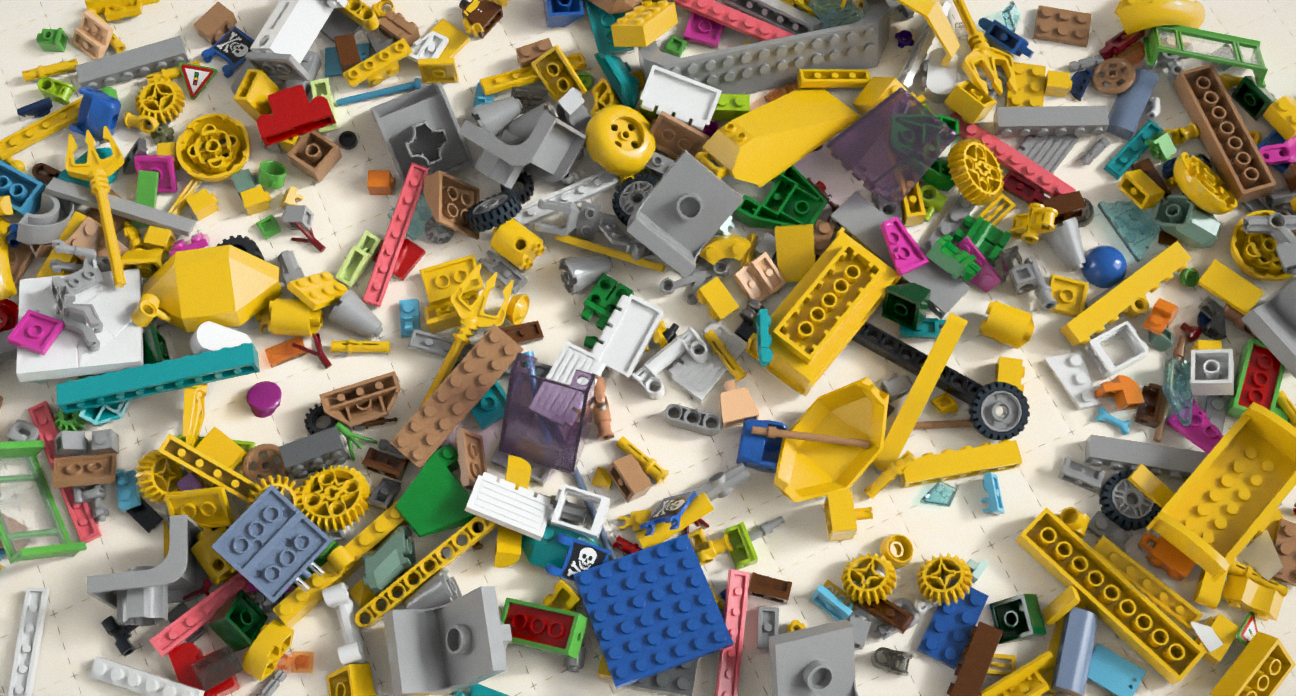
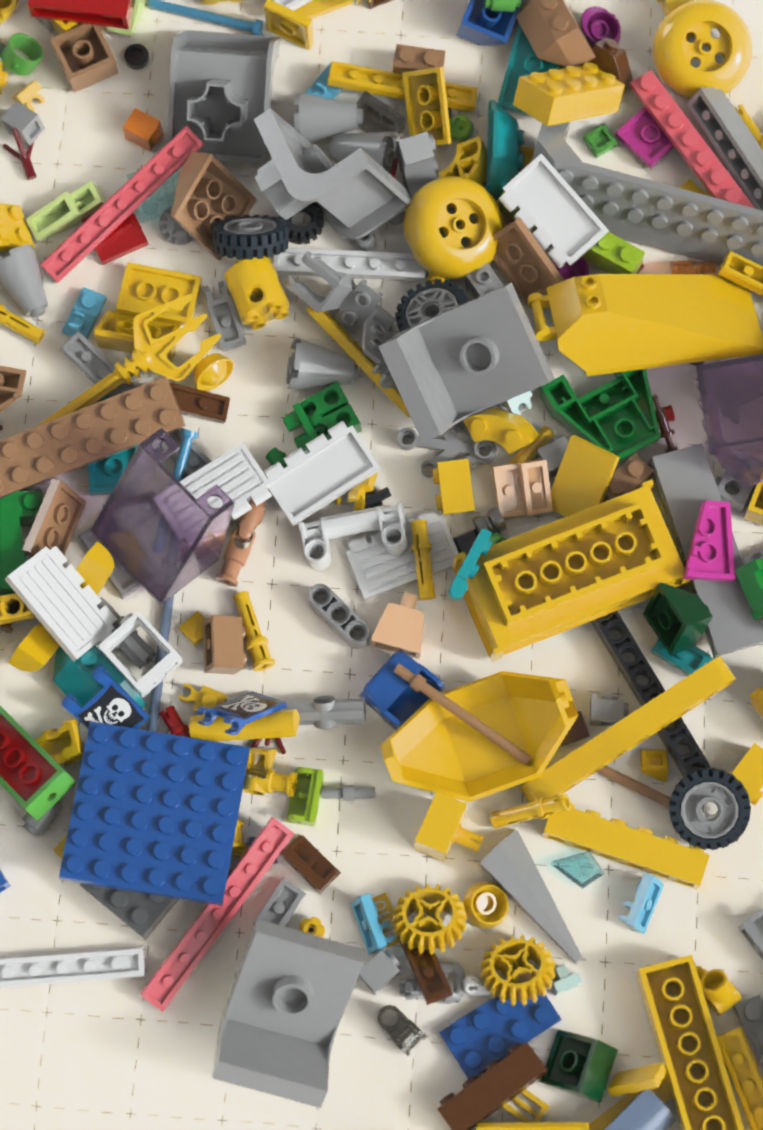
camera: 30 degrees right, 5 degrees up
(905, 521) = (518, 876): none -> light grey wedge

